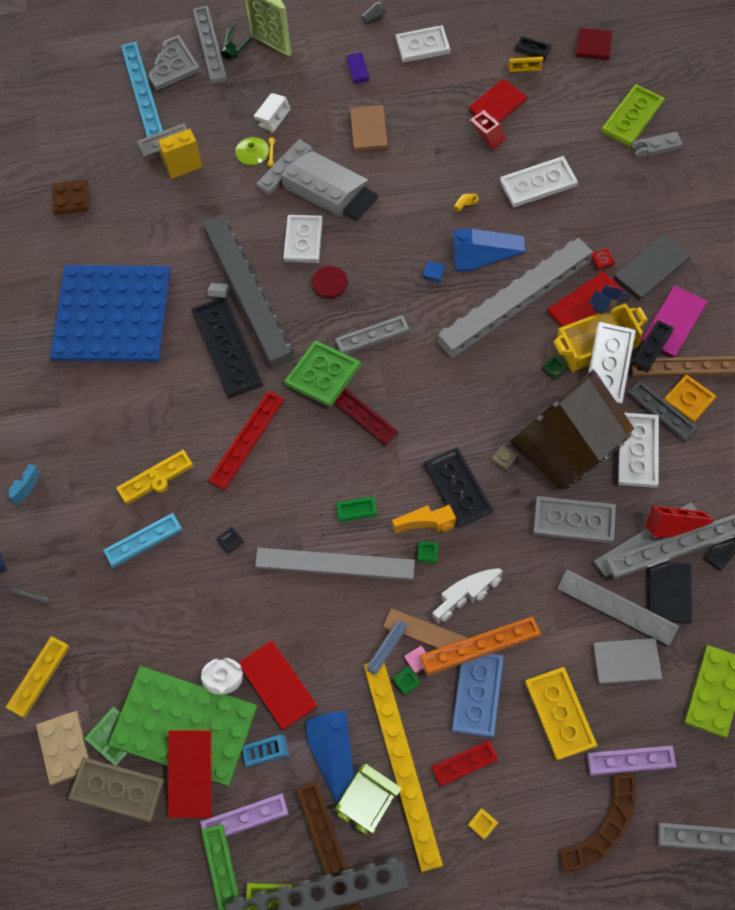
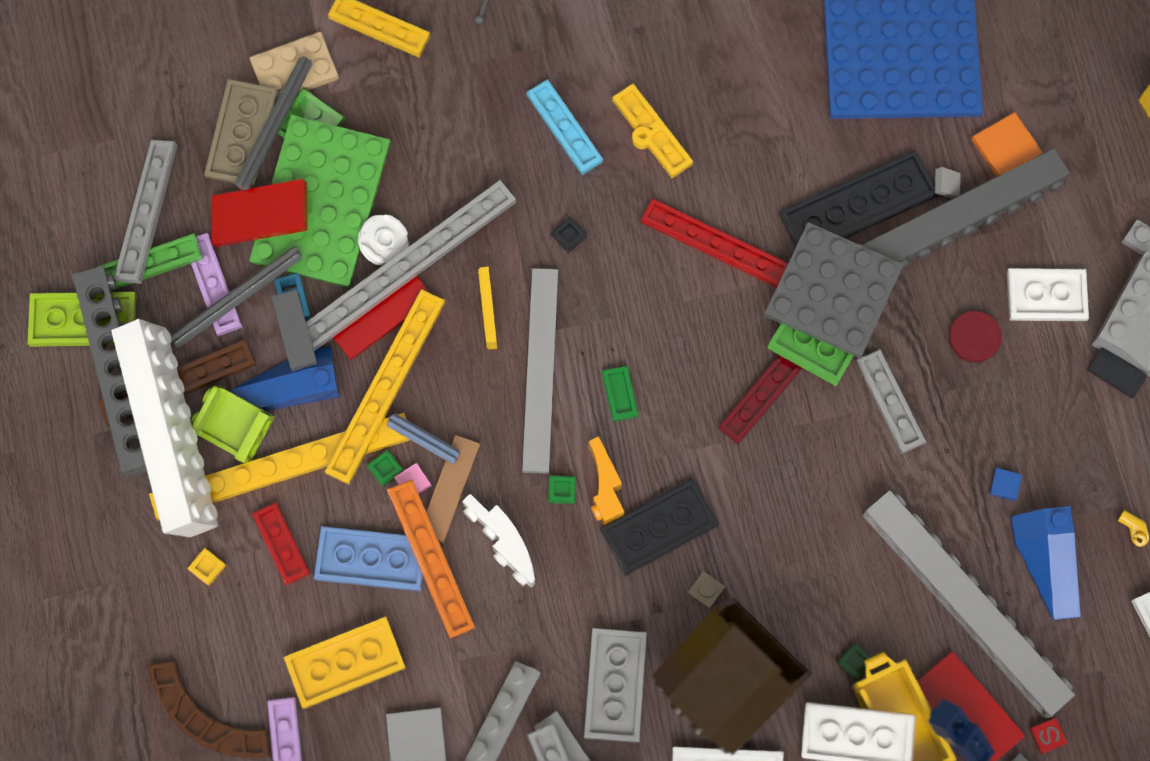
camera: 80 degrees right, 10 degrees up
(114, 760) = (273, 123): none -> dark grey axle
(176, 873) = (145, 211): none -> light grey tile
(195, 254) = (1006, 145): none -> orange tile
(248, 661) = (409, 264): none -> light grey plate
(260, 795) = (235, 297): none -> dark grey axle
(284, 598) = (487, 307): none -> yellow tile
(292, 359) = (834, 290): none -> dark grey plate
(294, 743) = (294, 330): none -> dark grey tile
(344, 676) = (384, 387): none -> yellow tile
(372, 848) = (165, 429): none -> white brick

